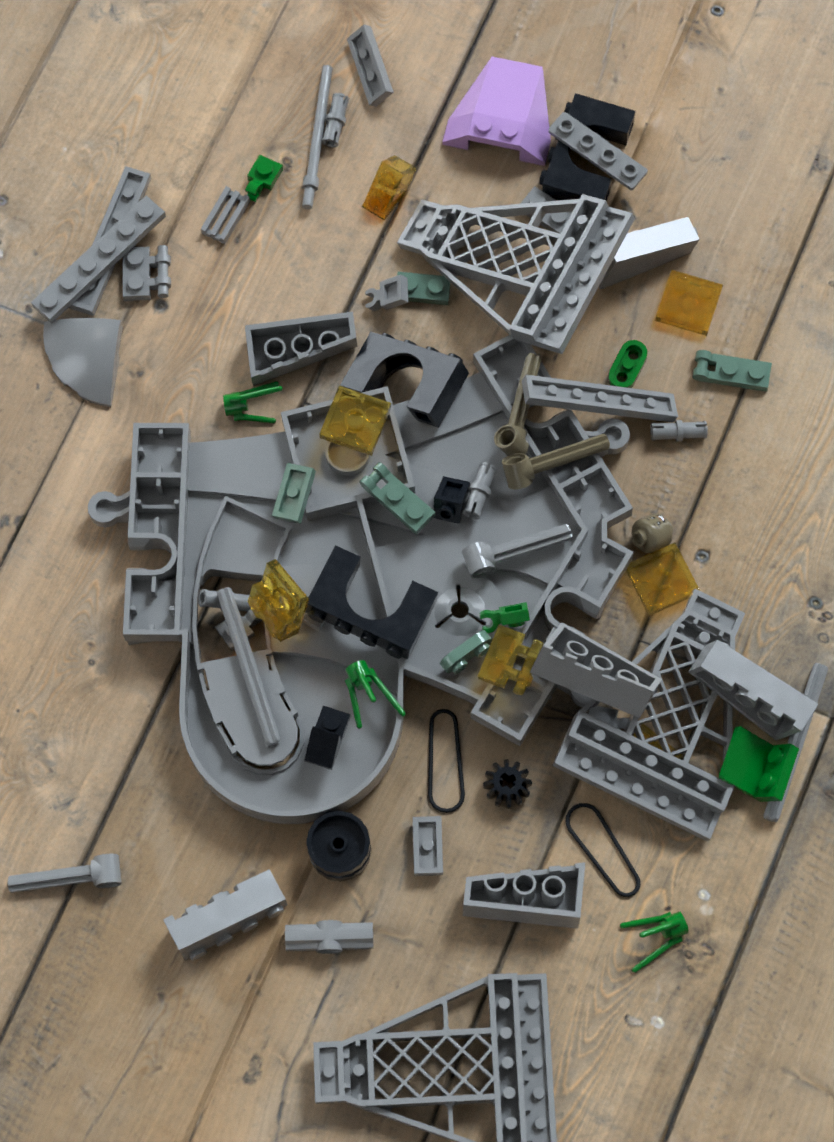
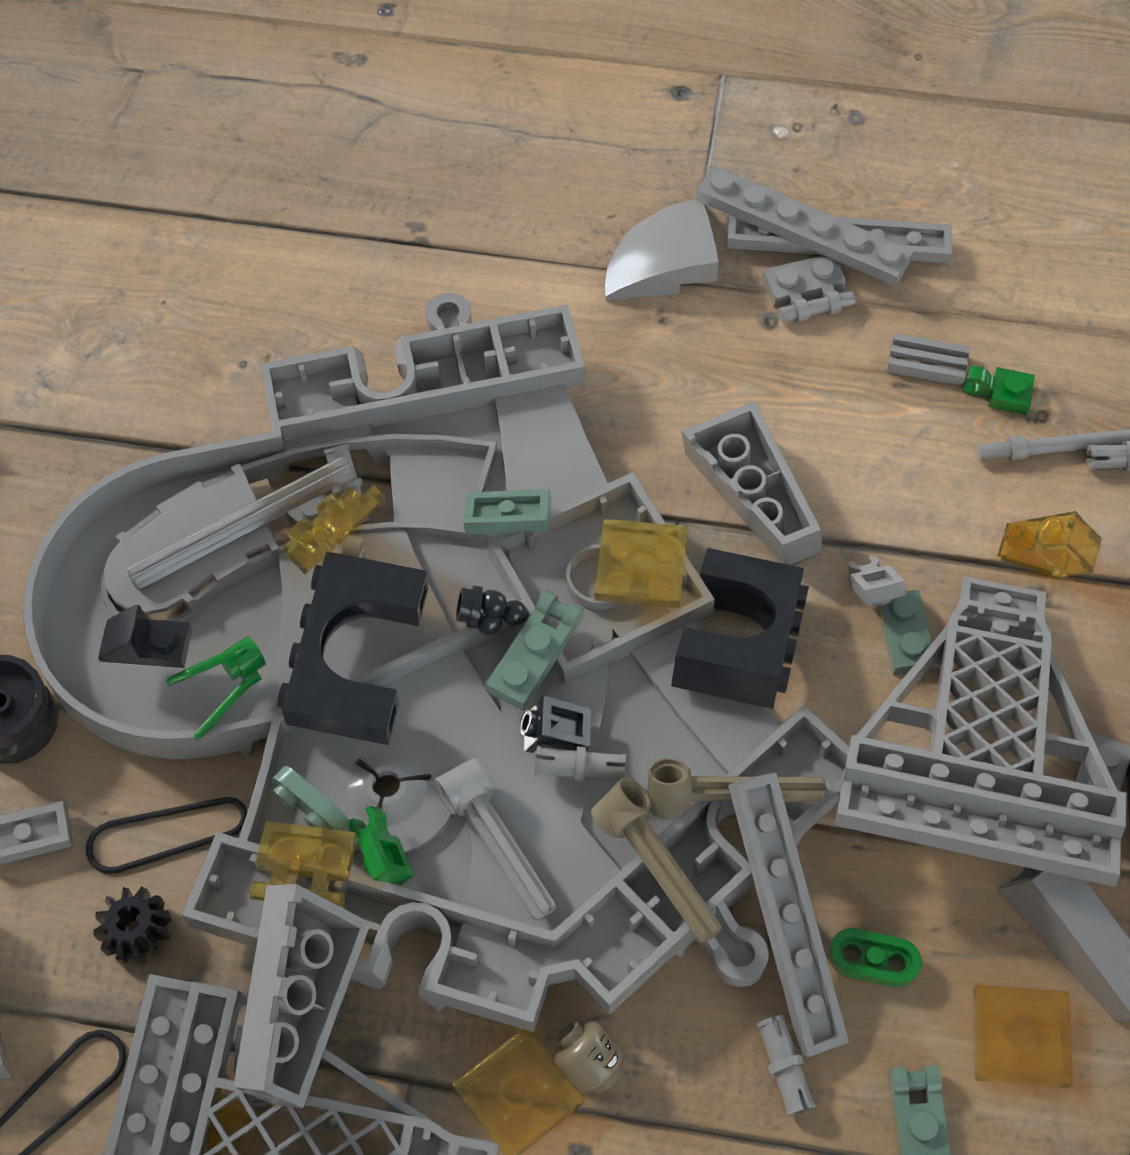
camera: 75 degrees right, 10 degrees down
(237, 402) = (649, 438): green plant -> none
(363, 520) = (488, 609): none -> black piece

